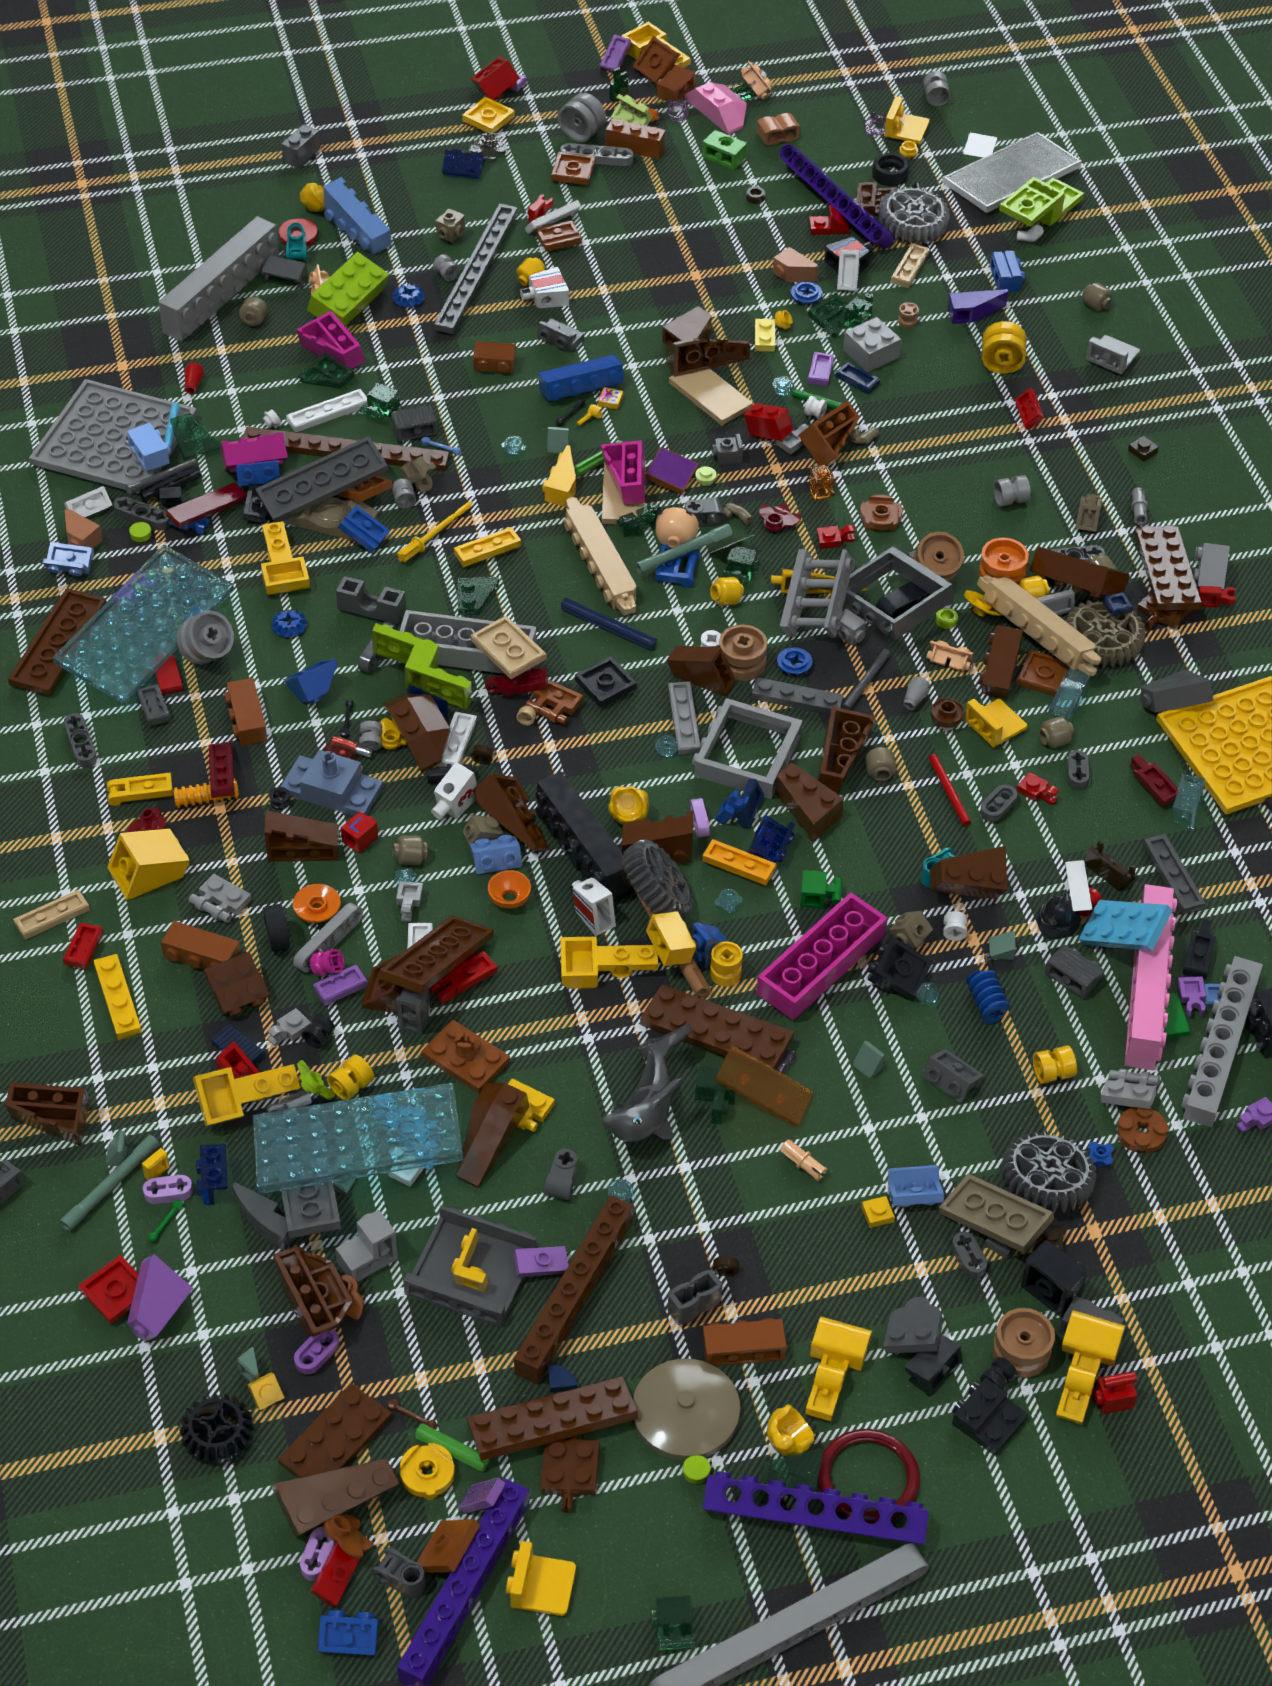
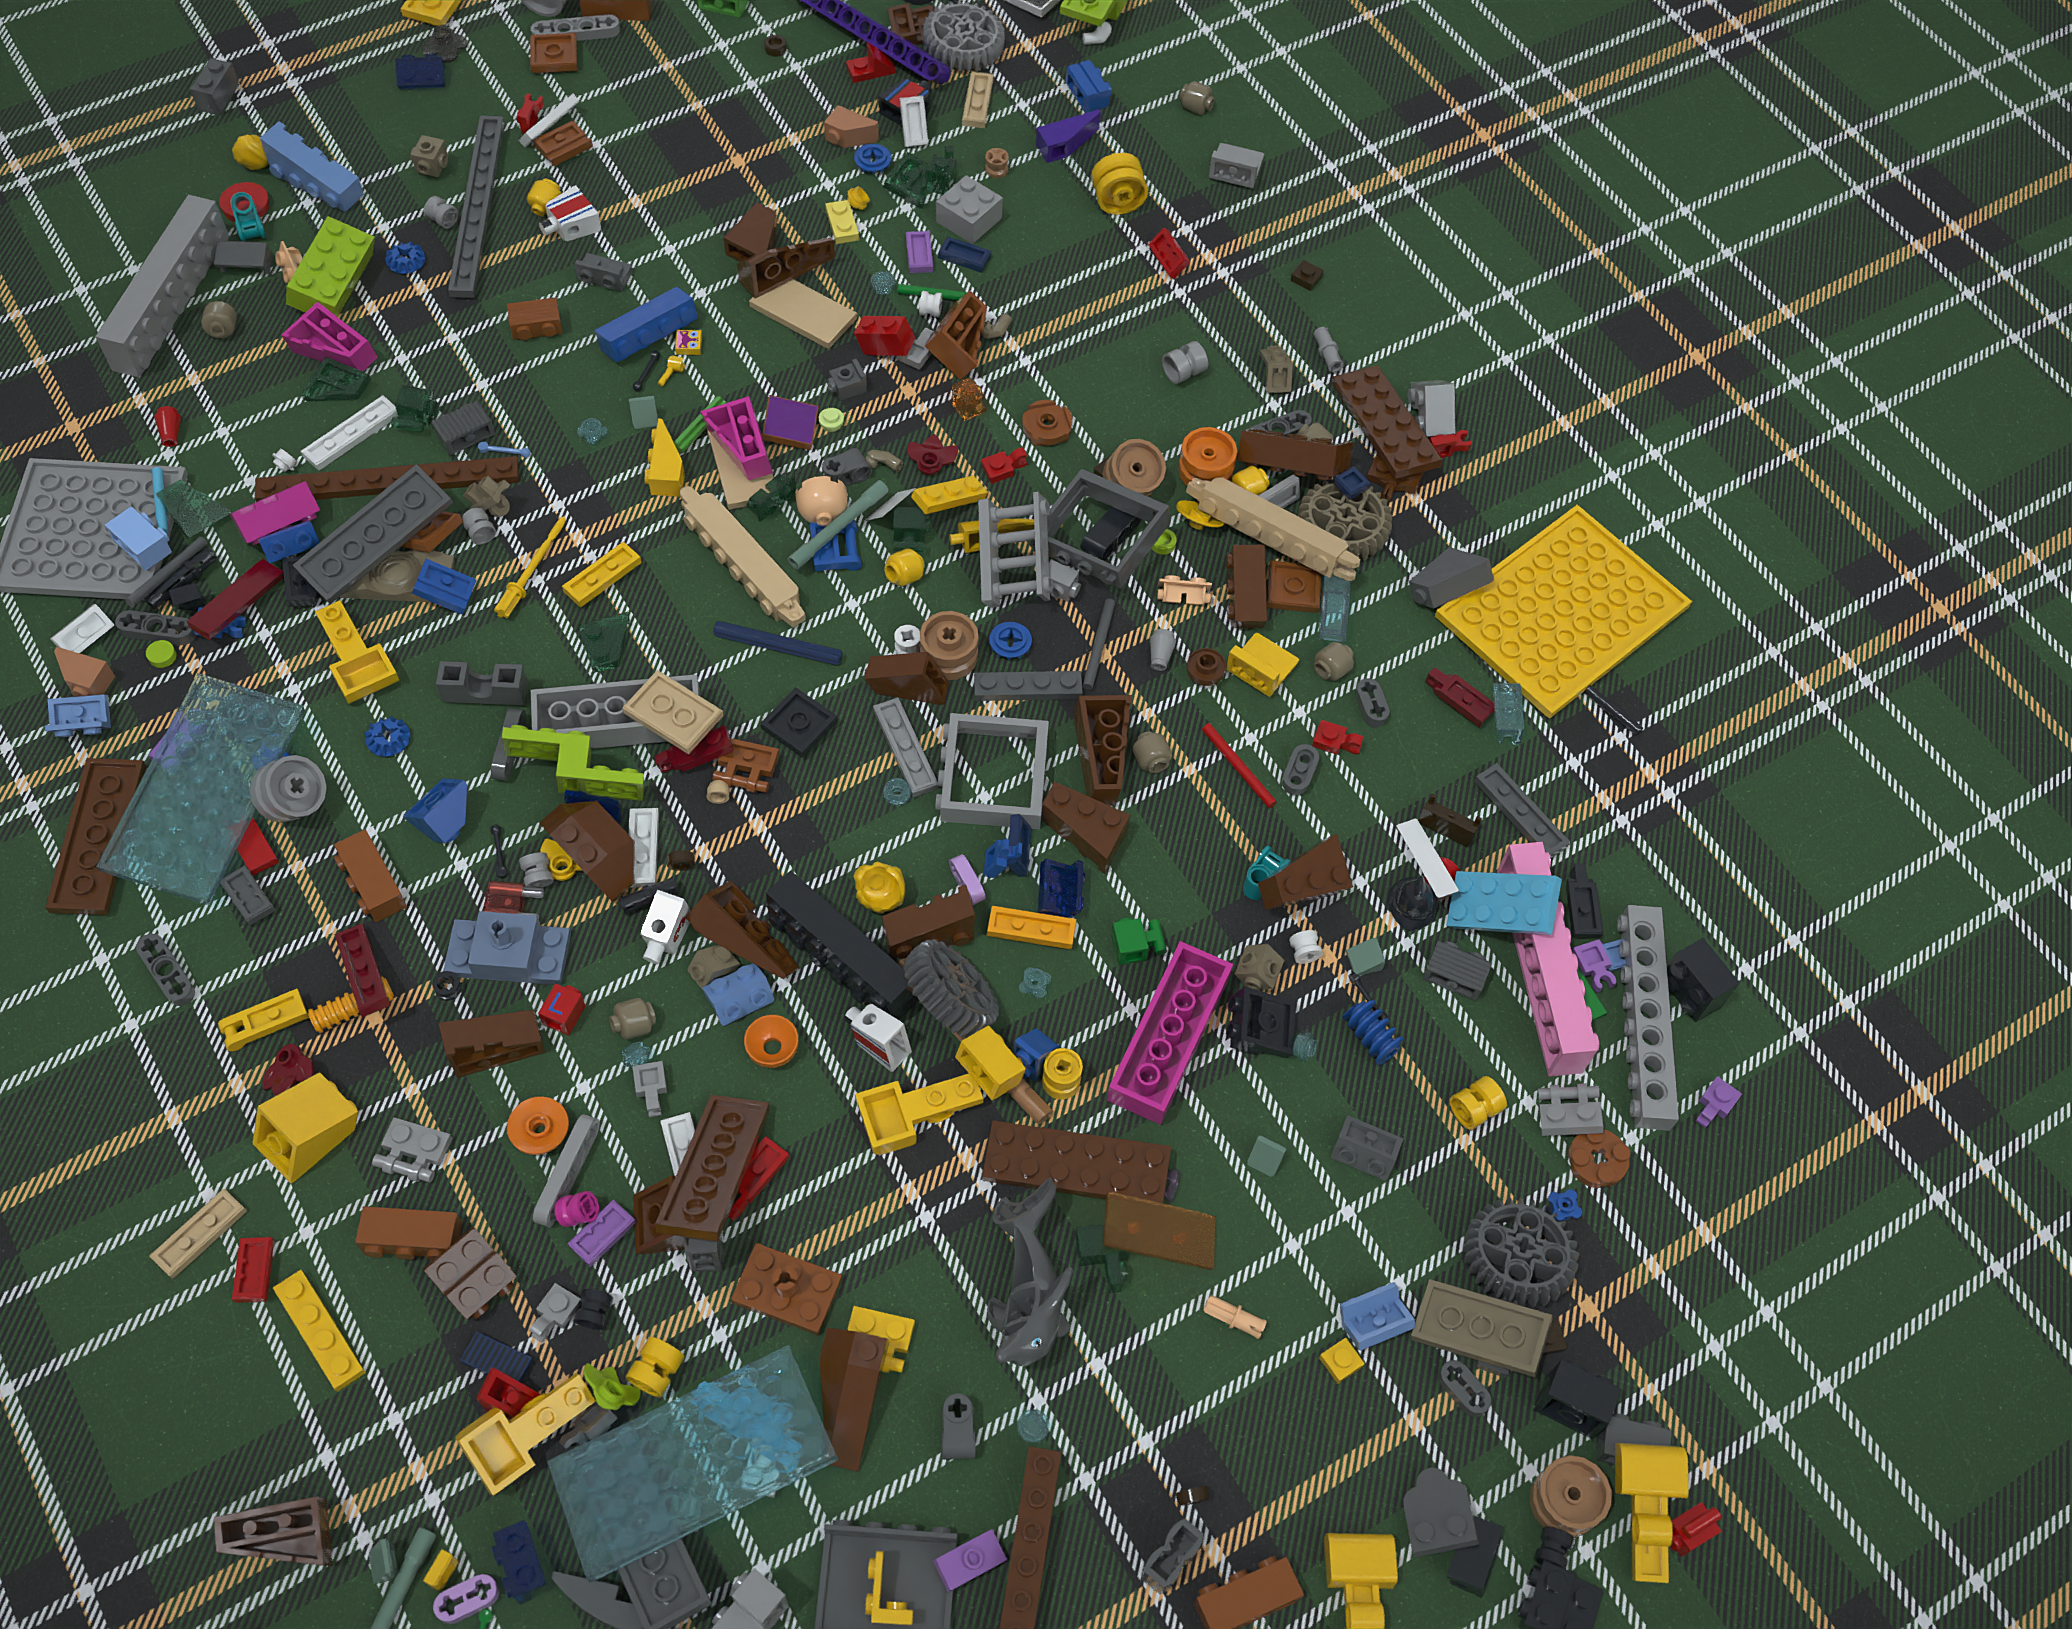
camera: 20 degrees left, 10 degrees up
(276, 927) = (497, 1178): black tyre -> none
(778, 545) = (949, 494): none -> yellow plate

